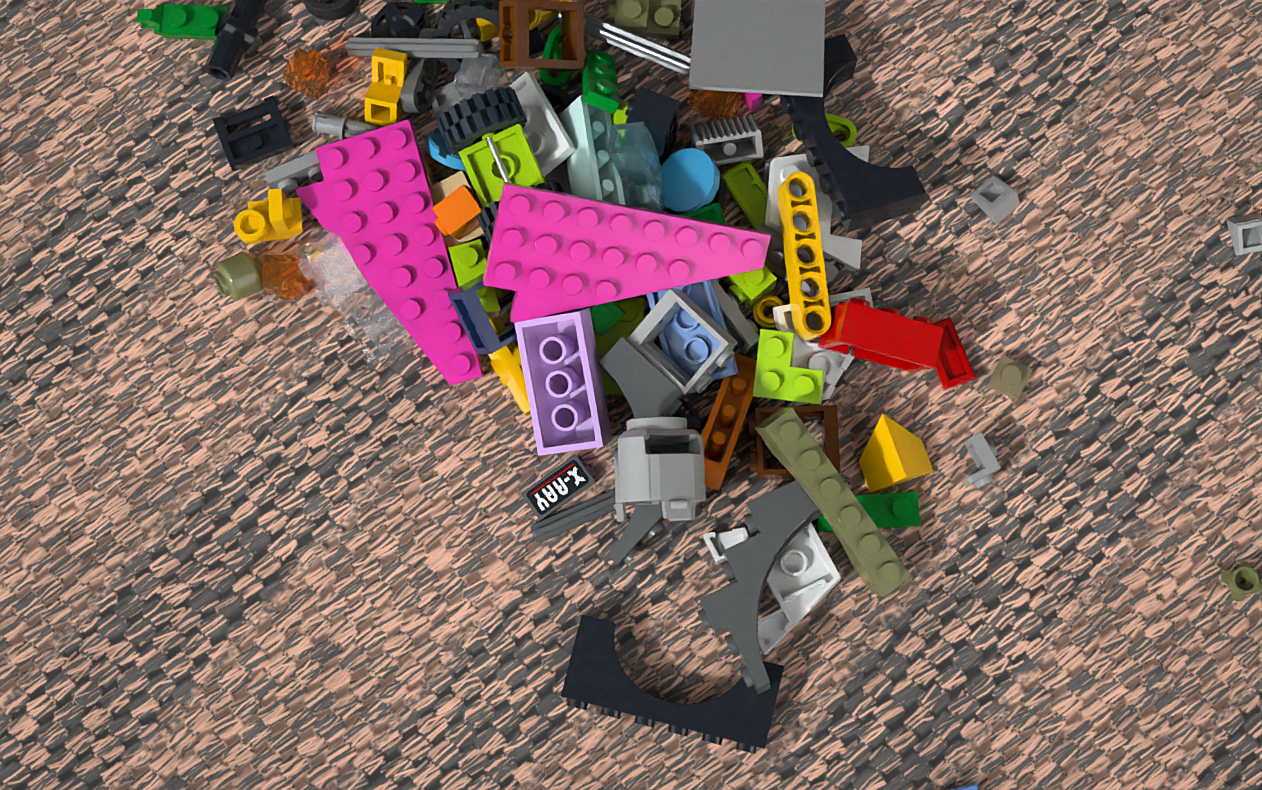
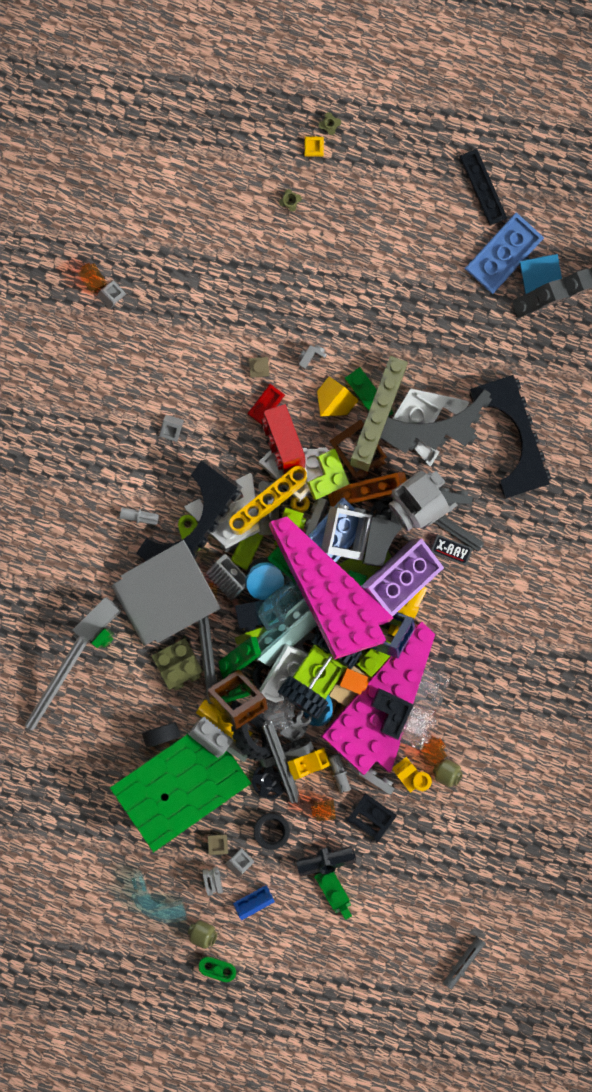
camera: 130 degrees left, 10 degrees up
(374, 249) = (396, 710): none -> black plate
(894, 76) = (139, 516): none -> light grey axle

